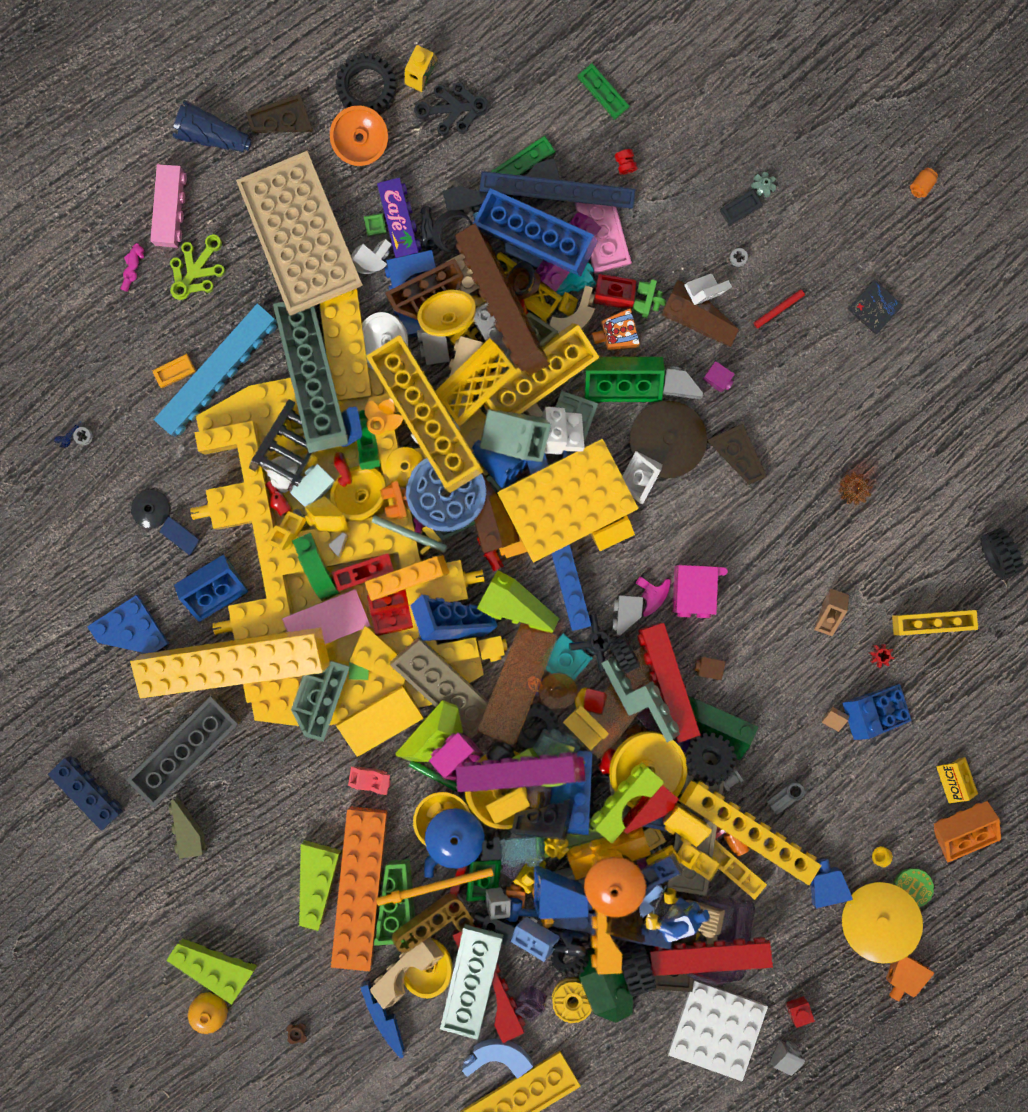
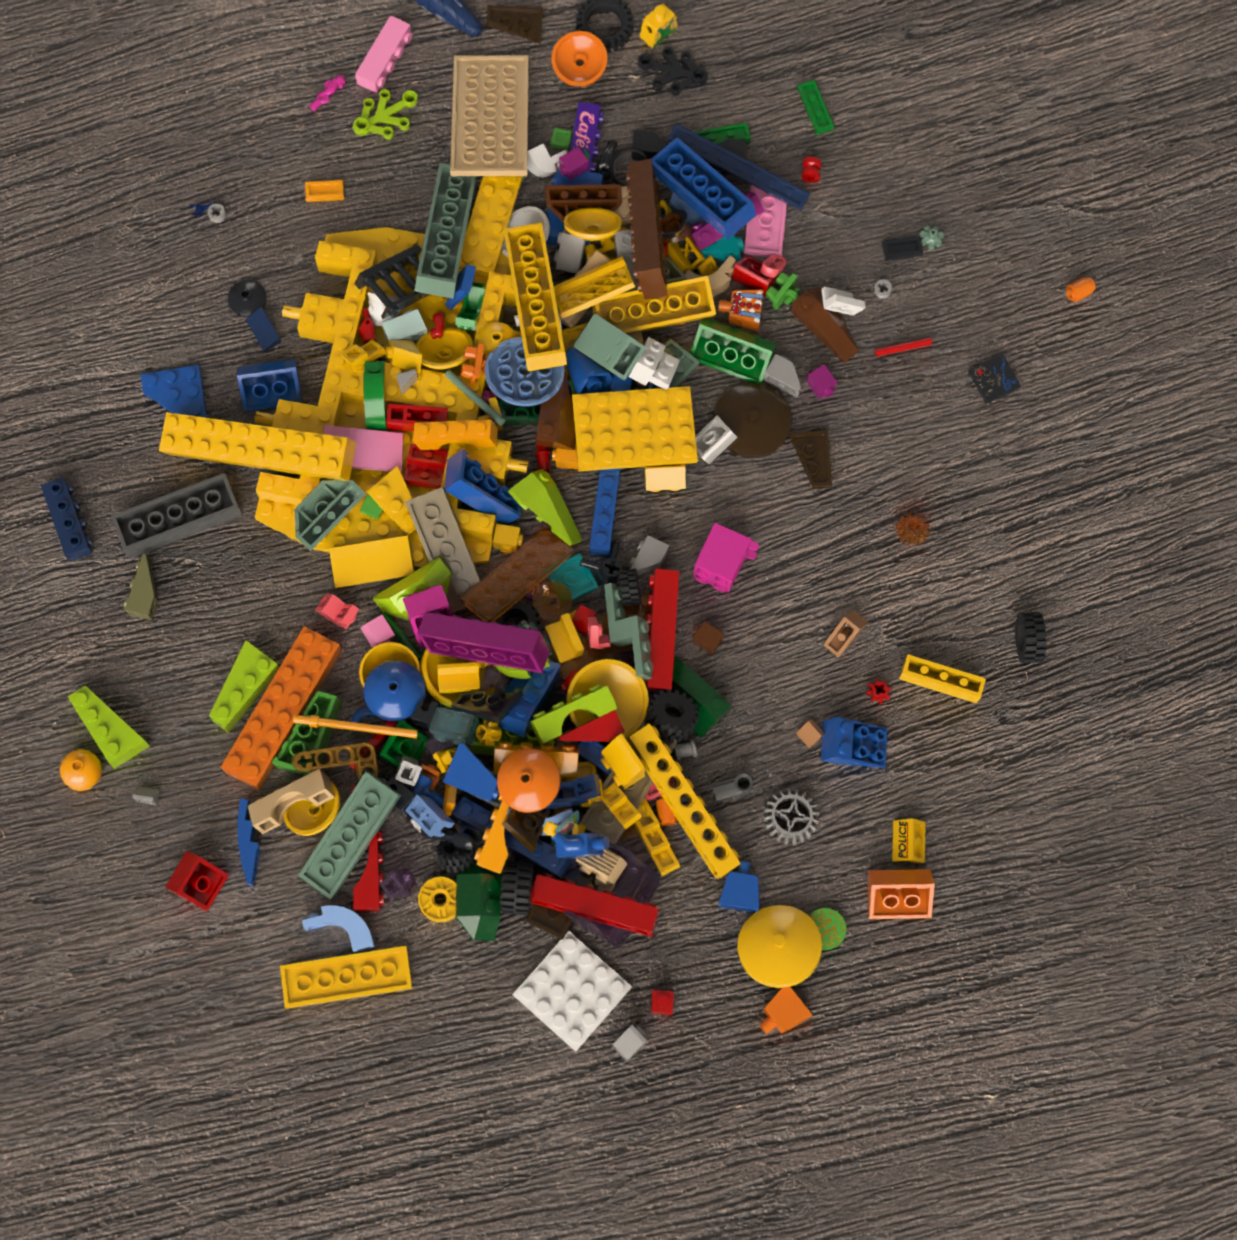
camera: 20 degrees right, 15 degrees down
(216, 370) = (362, 203): dark azure brick -> none
(275, 1012) = (146, 795): none -> light grey slope
(301, 1037) = (153, 819): reddish brown plate -> none
(354, 1070) = (197, 881): none -> red slope
(384, 414) = (496, 287): light orange plate -> none
(400, 254) = (573, 164): none -> magenta brick
(414, 784) = (377, 631): none -> bright pink brick
(615, 715) = (595, 637): none -> coral bracket
(629, 278) = (773, 266): none -> coral beam
(653, 594) = (680, 552): dark pink piece -> none
(845, 793) = (782, 815): none -> light grey gear
(882, 856) = (805, 884): yellow tile -> none

